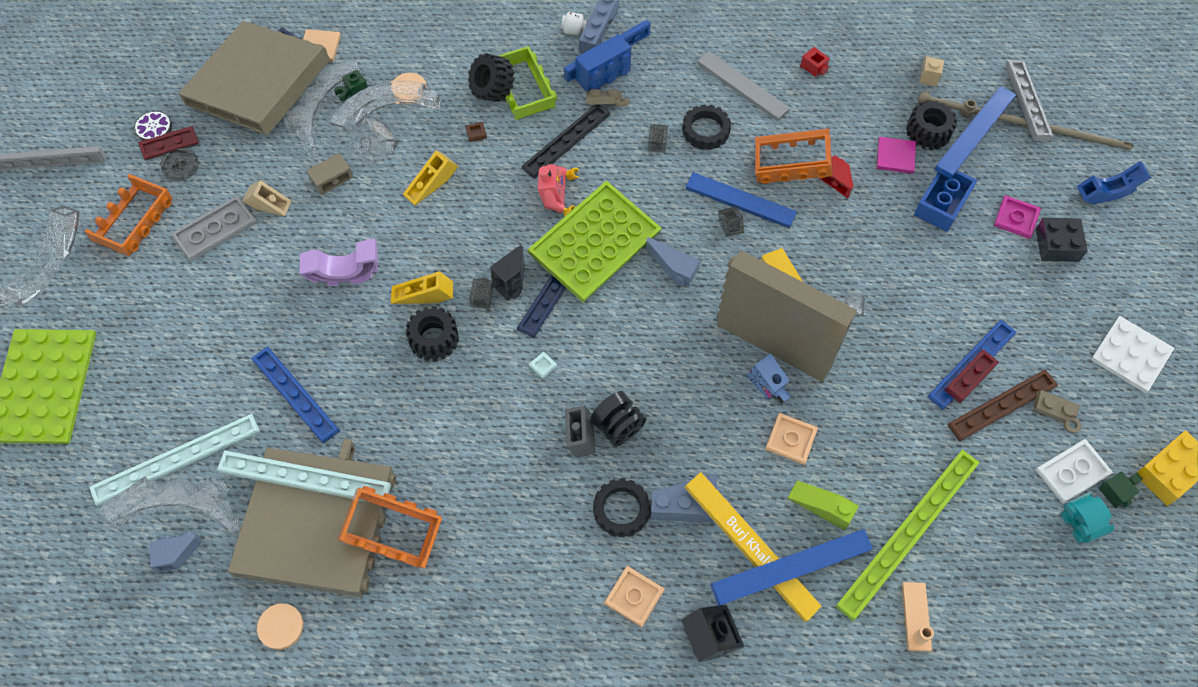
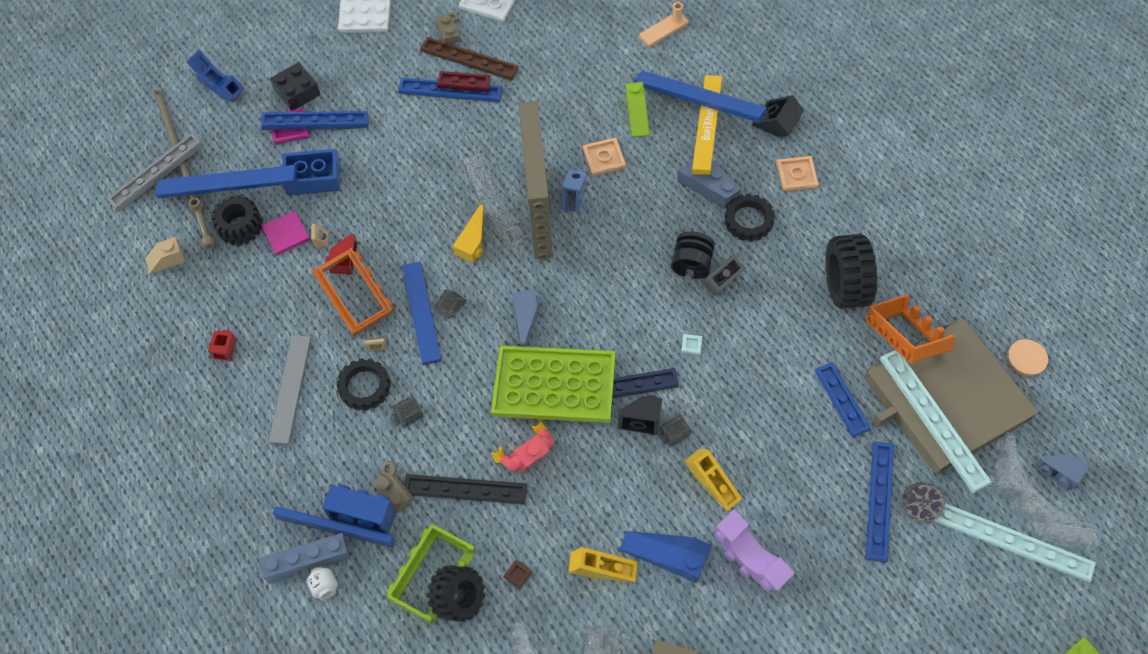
camera: 125 degrees left, 0 degrees up
(261, 420) = (923, 501): none -> clear smoke tile
(393, 438) = (842, 399): none -> blue tile
(398, 225) = (673, 553): none -> blue wedge
(432, 347) = (740, 450): black tyre -> none
(482, 520) = (851, 271): none -> black tyre
(737, 153) = (376, 344): none -> tan slope
(872, 171) = (319, 236): none -> tan slope
(907, 535) = (612, 58): lime plate -> none
(1008, 235) = (314, 120): none -> blue tile

